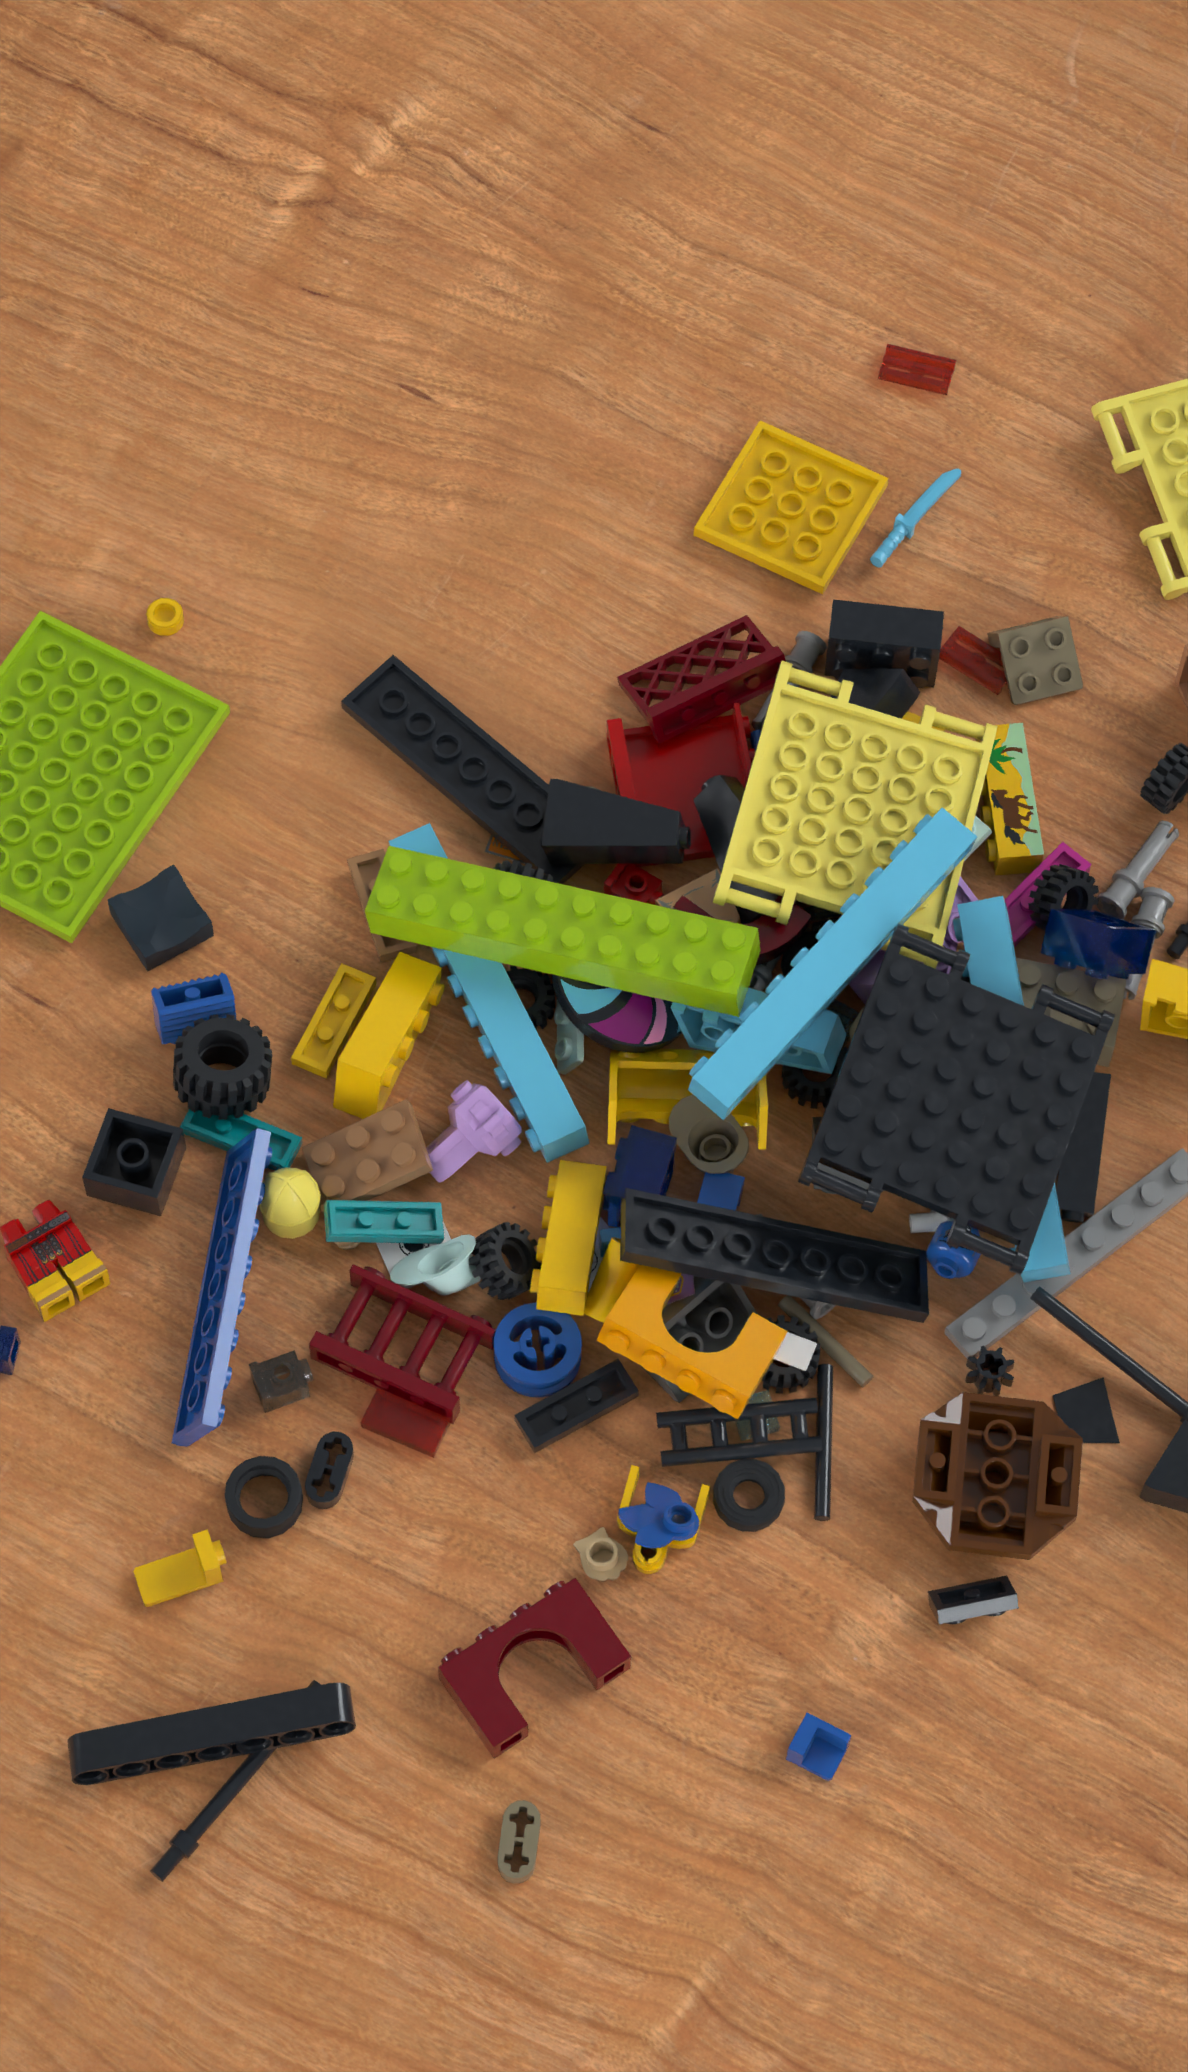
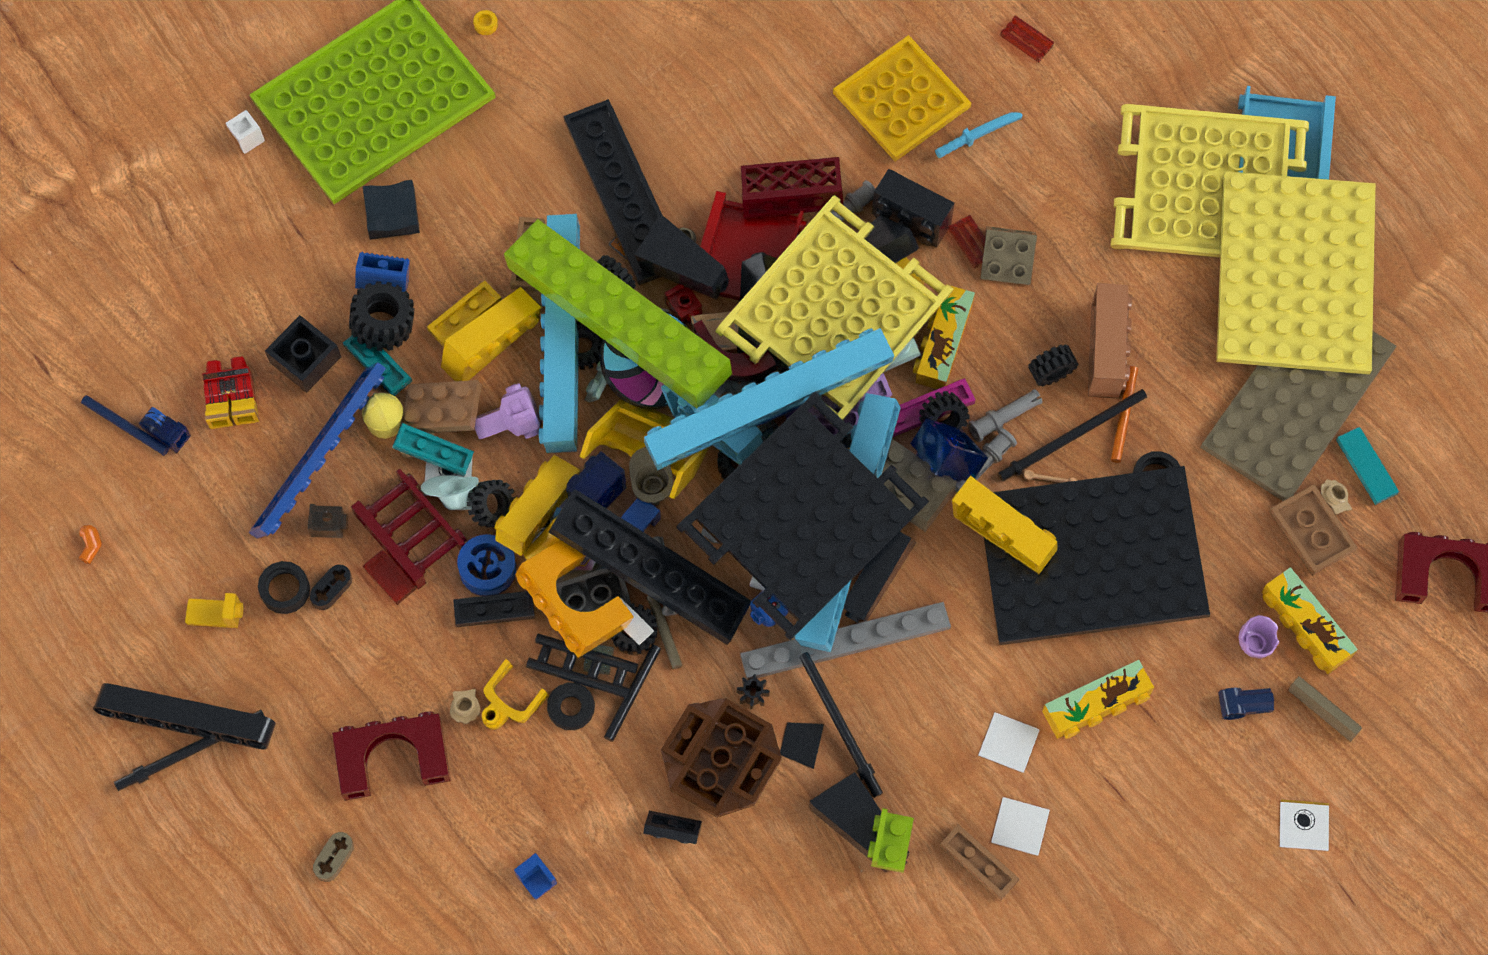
camera: 25 degrees right, 5 degrees up
(661, 1518) = (503, 698): blue plate -> none

